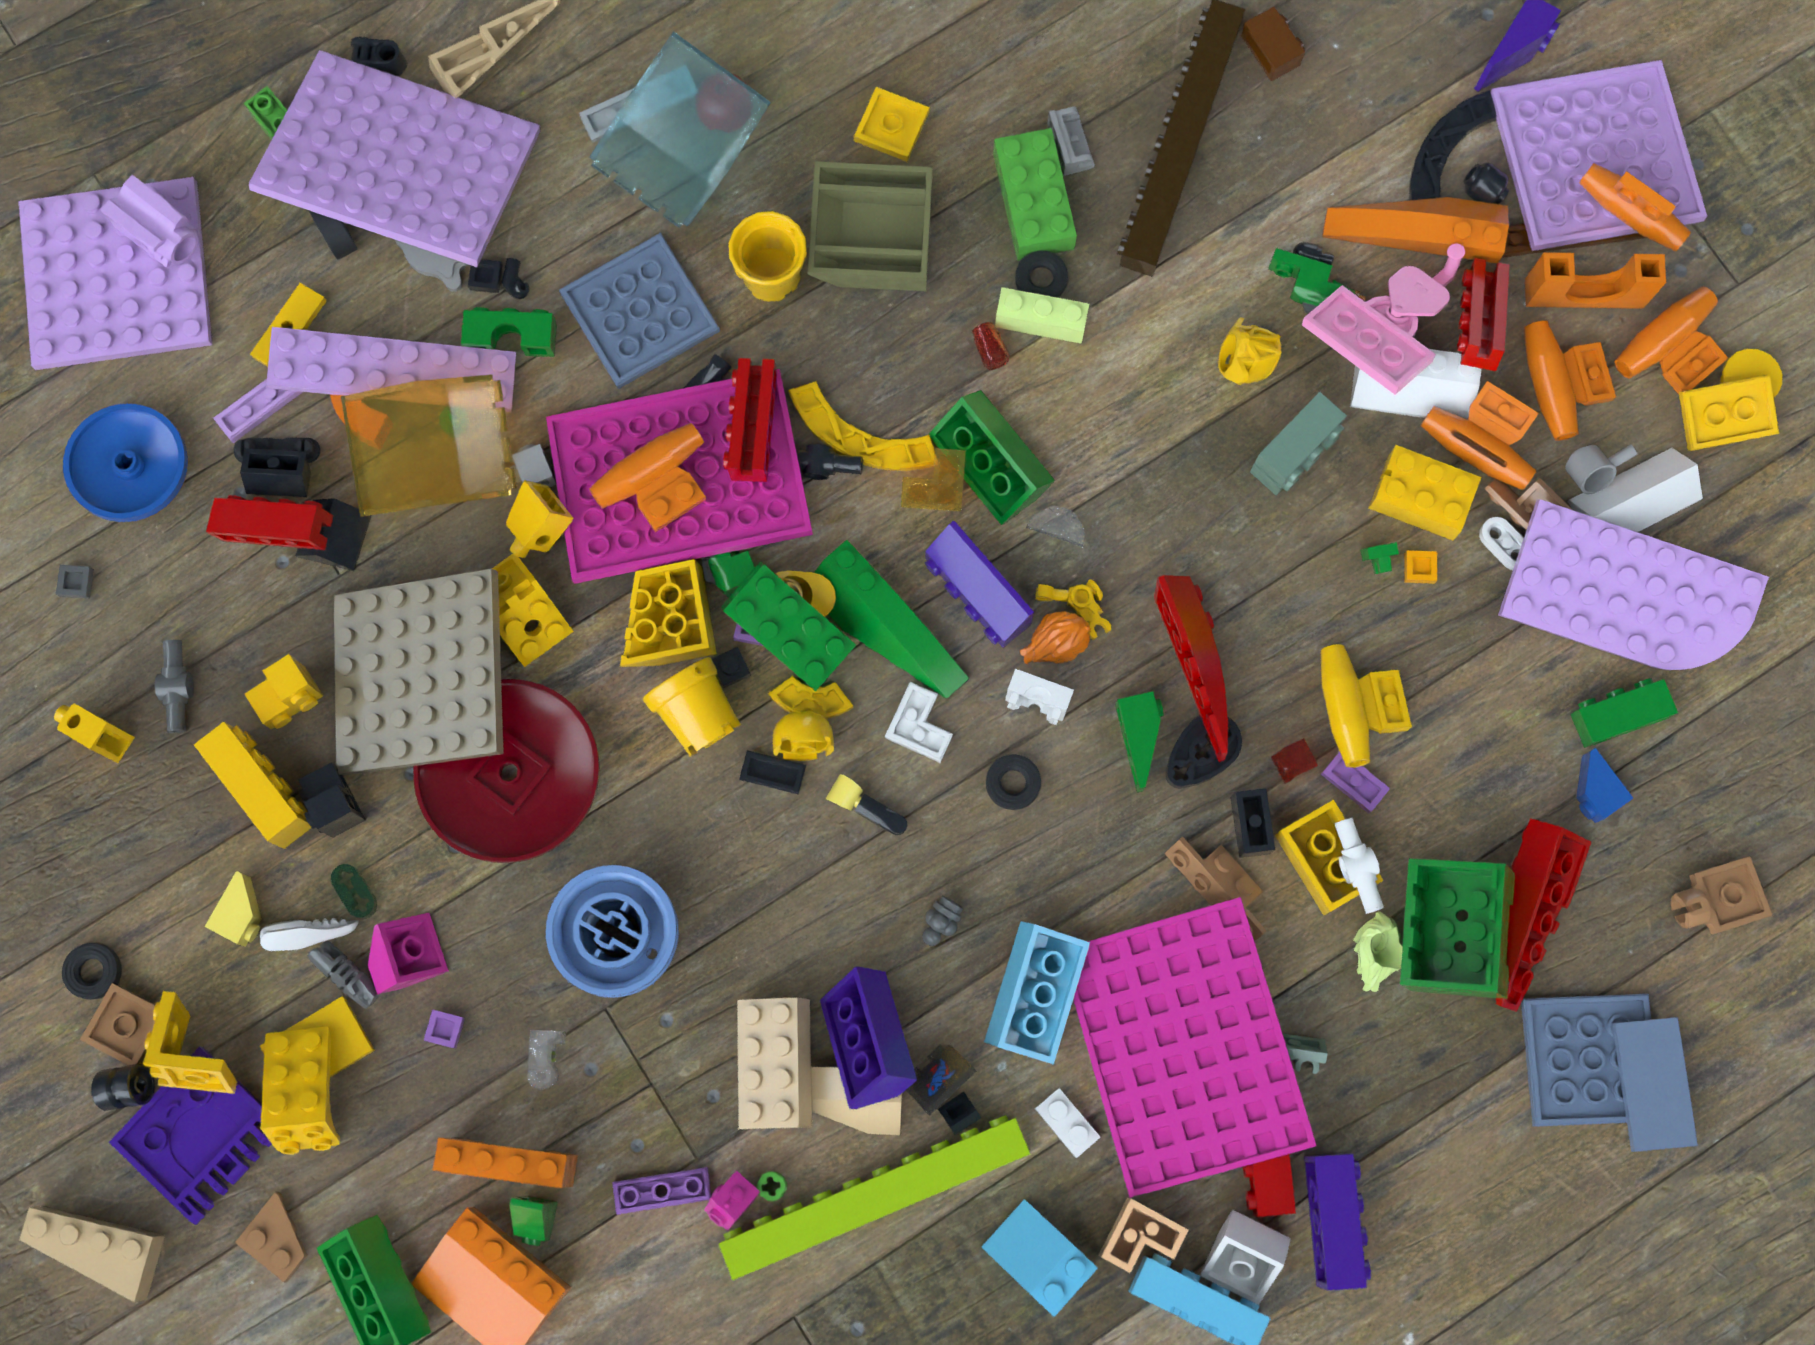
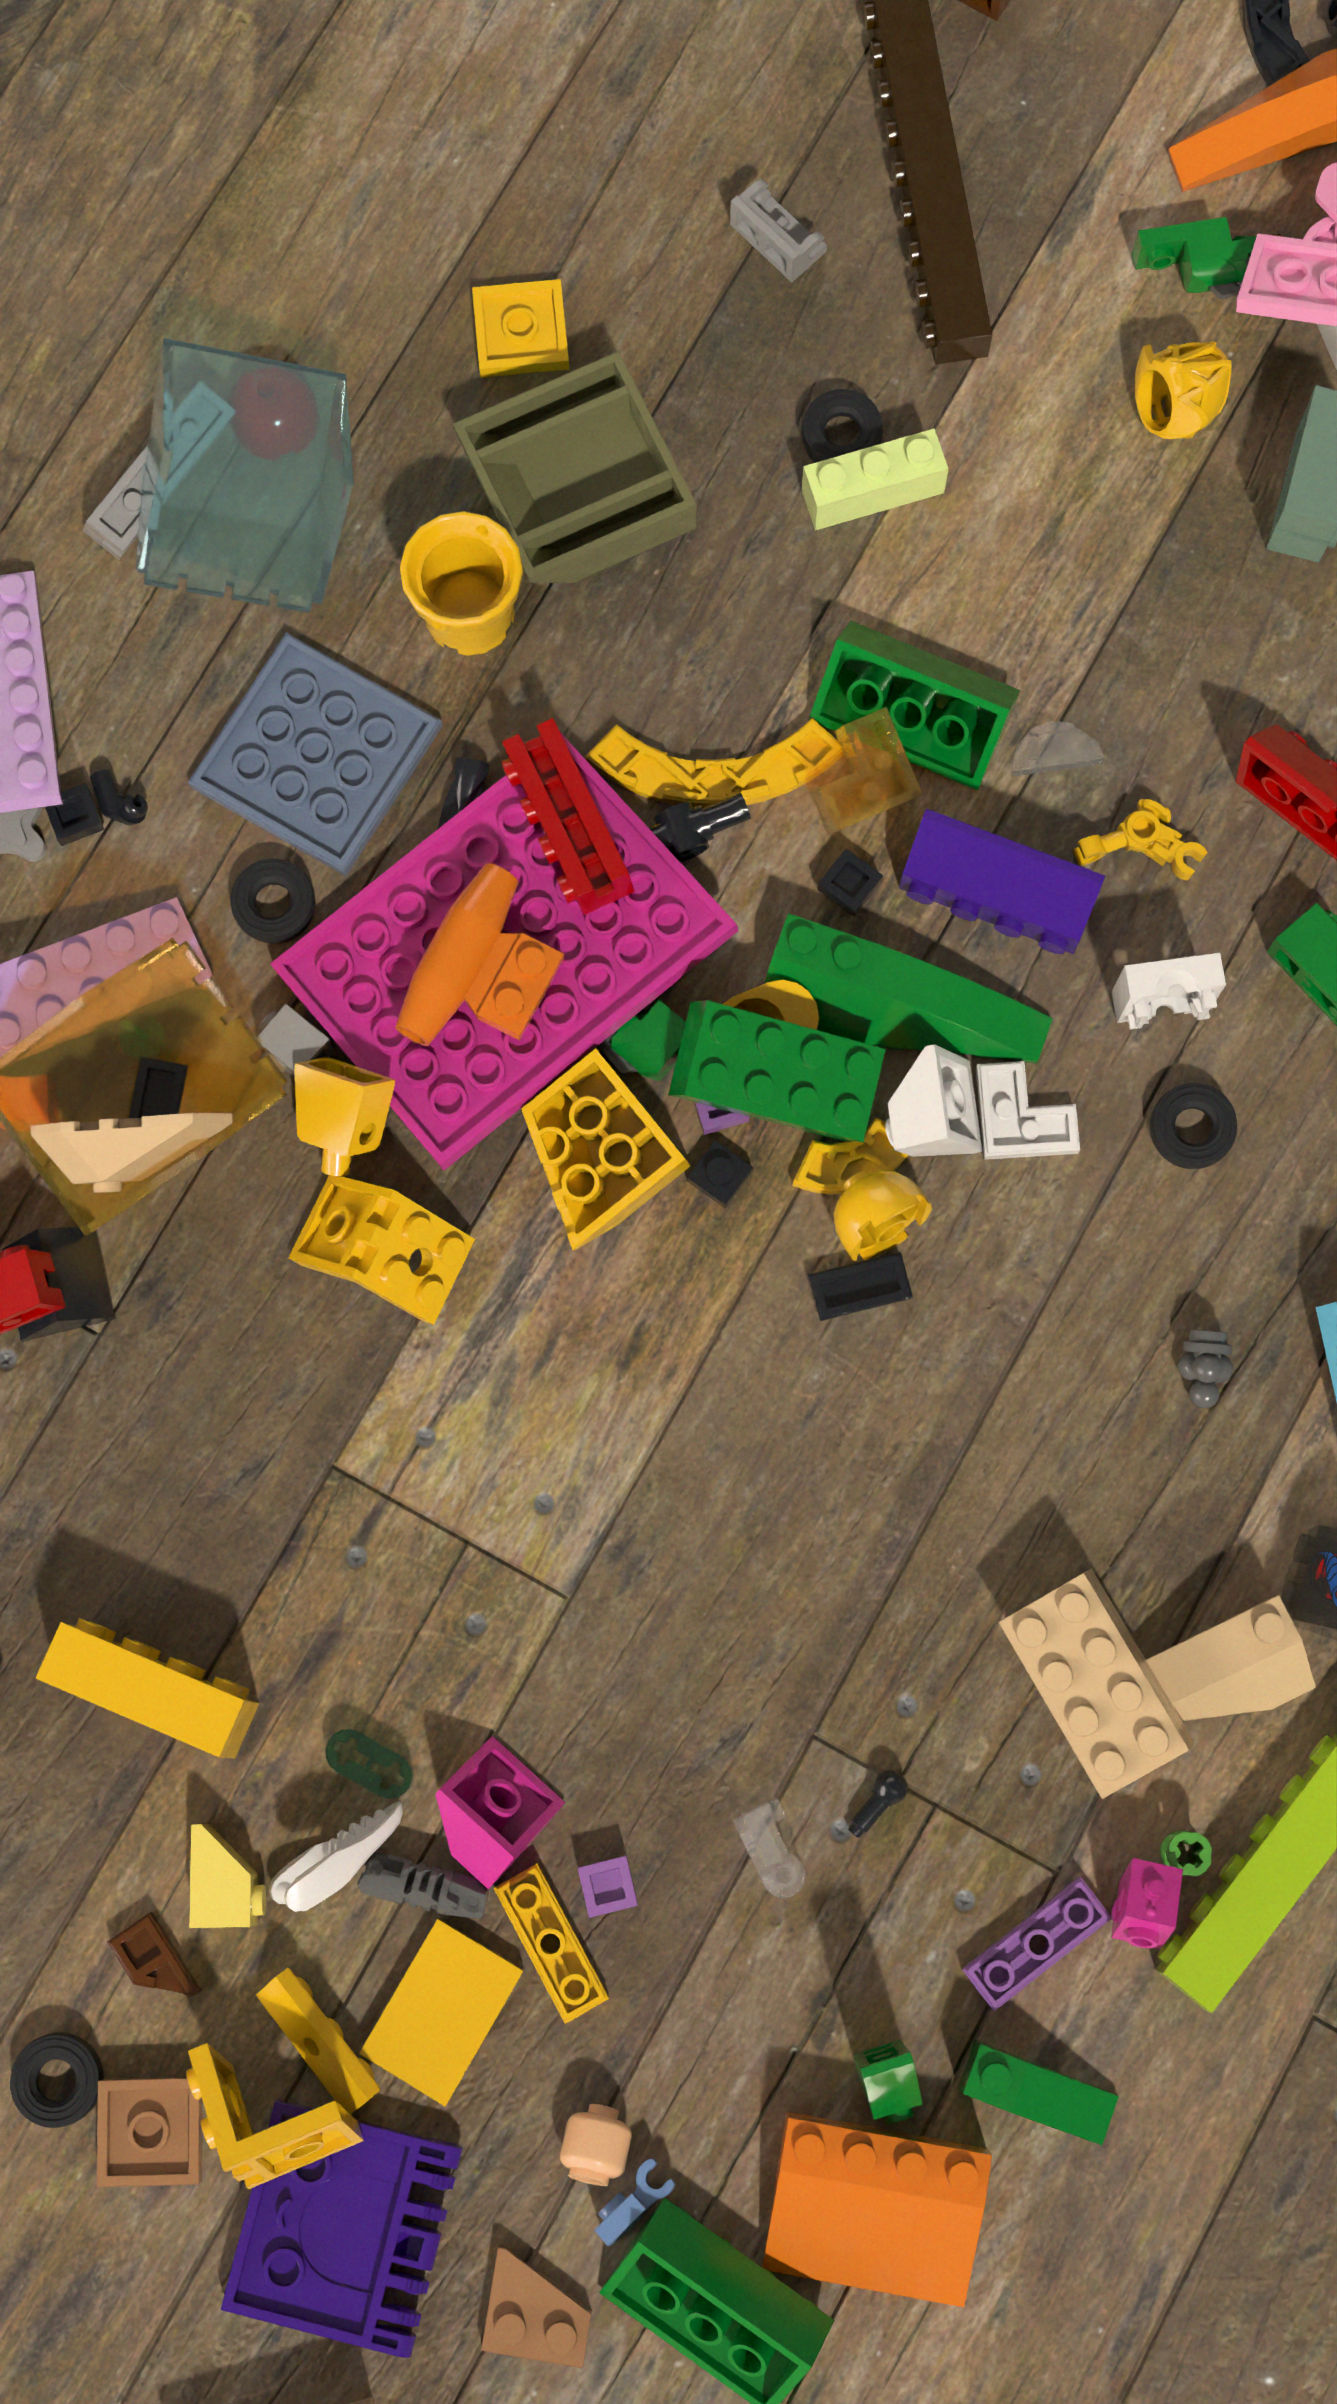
camera: 25 degrees left, 0 degrees up
(123, 1087) = (199, 2220): black wheel -> none
(178, 933) = (152, 1958): none -> reddish brown tile
(241, 1027) = (318, 2041): none -> yellow tile
(284, 693) = (116, 1540): yellow brick -> none
(298, 1090) = (453, 2084): yellow bracket -> none
(329, 801) = (266, 1655): black brick -> none
(354, 1211) = (623, 2213): none -> medium blue plate
(357, 1166) = (595, 2145): none -> light nougat head
(398, 478) = (124, 1149): none -> tan wedge
(398, 1063) = (566, 1972): none -> yellow tile
(418, 673) = (296, 1409): dark tan plate -> none
(436, 464) = (158, 1088): none -> black tile
(485, 327) = (185, 850): green arch -> none
(505, 1163) = (766, 2043): orange arch -> none
(537, 809) = (424, 1465): dark red dish -> none
(572, 399) = (267, 873): none -> black tyre
(589, 899) = (775, 1555): medium blue wheel -> none
(614, 1272) = (1037, 2092): none -> green slope
(629, 1061) = (888, 1790): none -> black piece
(694, 706) = (708, 1252): yellow piece -> none
(847, 795) = (980, 1263): piece -> none
(867, 1038) = (1208, 1578): dark purple slope -> none
(870, 693) = (935, 1107): none -> white slope
(896, 540) = (850, 882): none -> black plate
(990, 346) = (827, 556): clear red piece -> none
(1034, 193) = (770, 321): bright green brick -> none
(1058, 639) = (1145, 900): orange hair -> none
(1313, 252) = (1185, 213): black cylinder -> none

